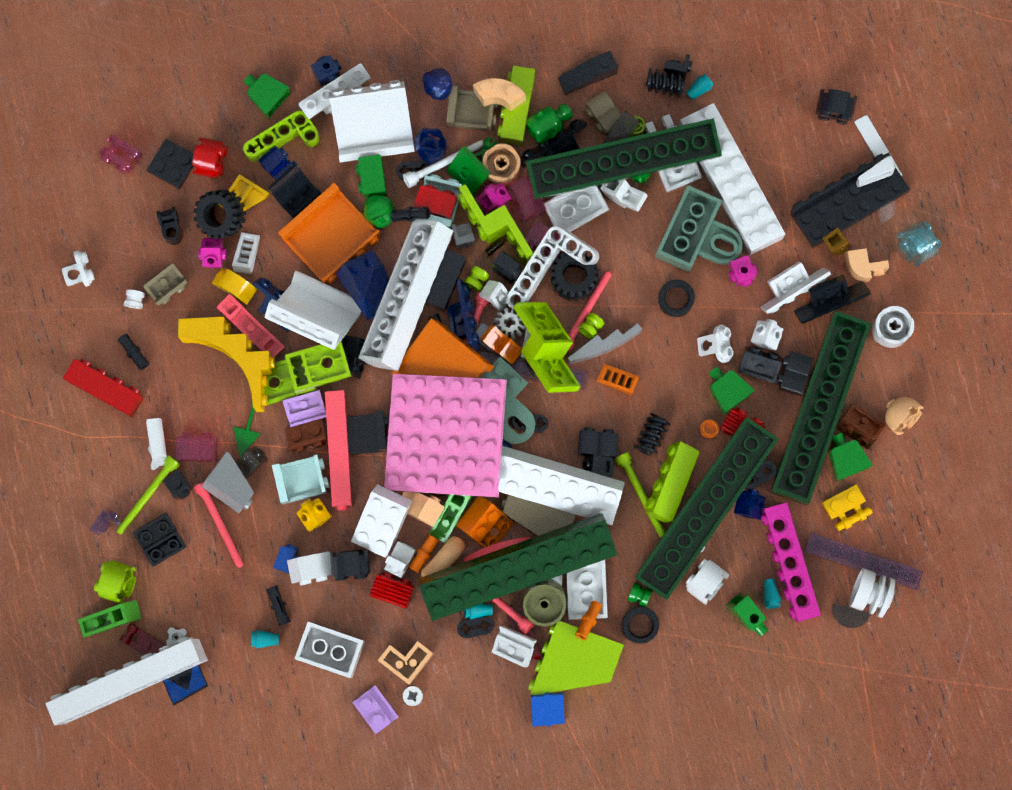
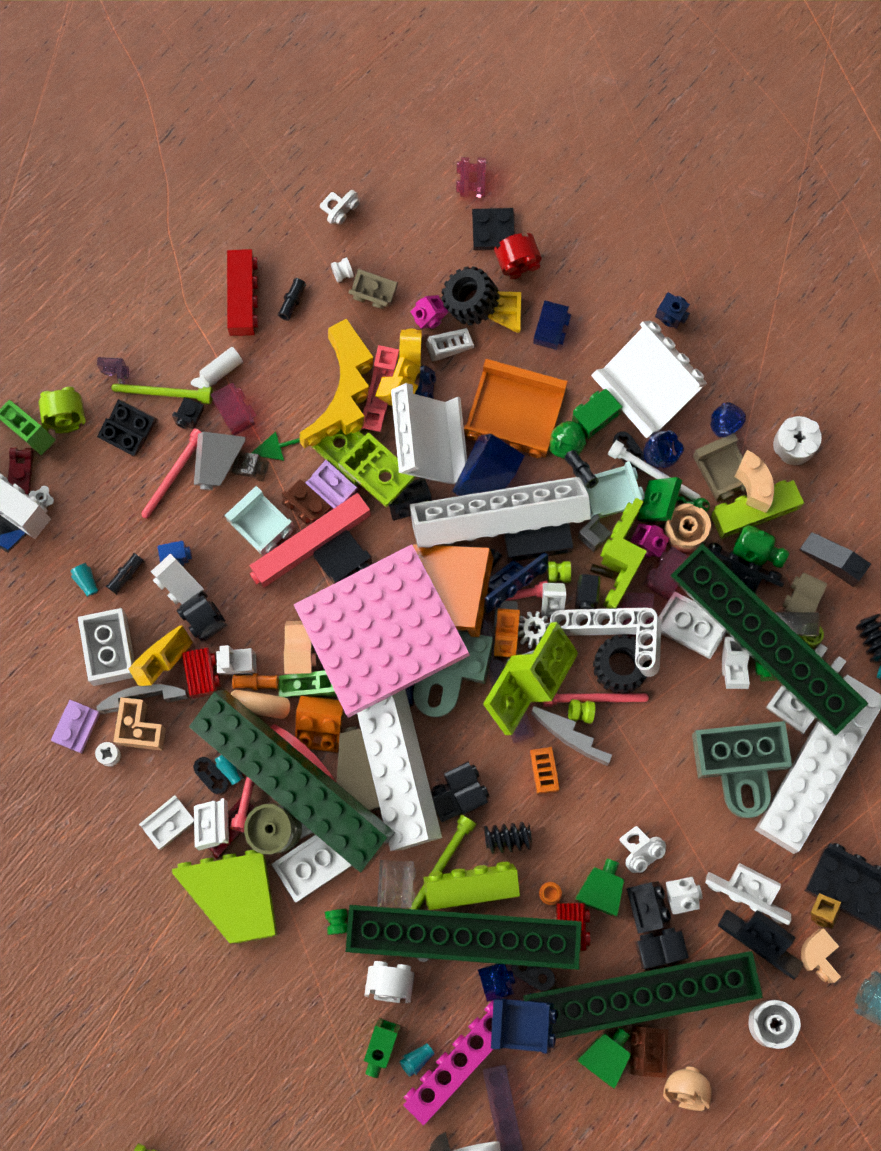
camera: 55 degrees right, 5 degrees down
(170, 222) = (434, 257): black piece -> none
(257, 305) = (405, 372): none -> yellow brick
(266, 93) = (615, 271): green torso -> none
(279, 139) = (577, 309): lime beam -> none
(294, 191) = (536, 348): black bracket -> none
(313, 514) = (232, 553): yellow brick -> none
(320, 99) = (633, 317): white bracket -> none
(362, 613) = (160, 656): none -> yellow slope
(381, 521) = (261, 620): white brick -> none
(394, 622) = (169, 694): none -> light grey slope
(440, 203) = (610, 489): red brick -> none
(482, 33) = (800, 429): none -> white brick
(491, 679) = (167, 822): none -> white plate
(536, 417) = (455, 712): black beam -> none
(547, 709) = (167, 896): blue piece -> none
(588, 620) = (279, 884): orange pin -> none
(638, 535) = (396, 884): none -> clear bracket
(640, 610) = (289, 940): black tyre -> none
(678, 284) = (673, 766): black tyre -> none
(742, 265) = (738, 826): dark pink brick -> none
(793, 501) = (523, 1025): none -> dark blue panel
(844, 502) = (560, 1082): yellow plate -> none

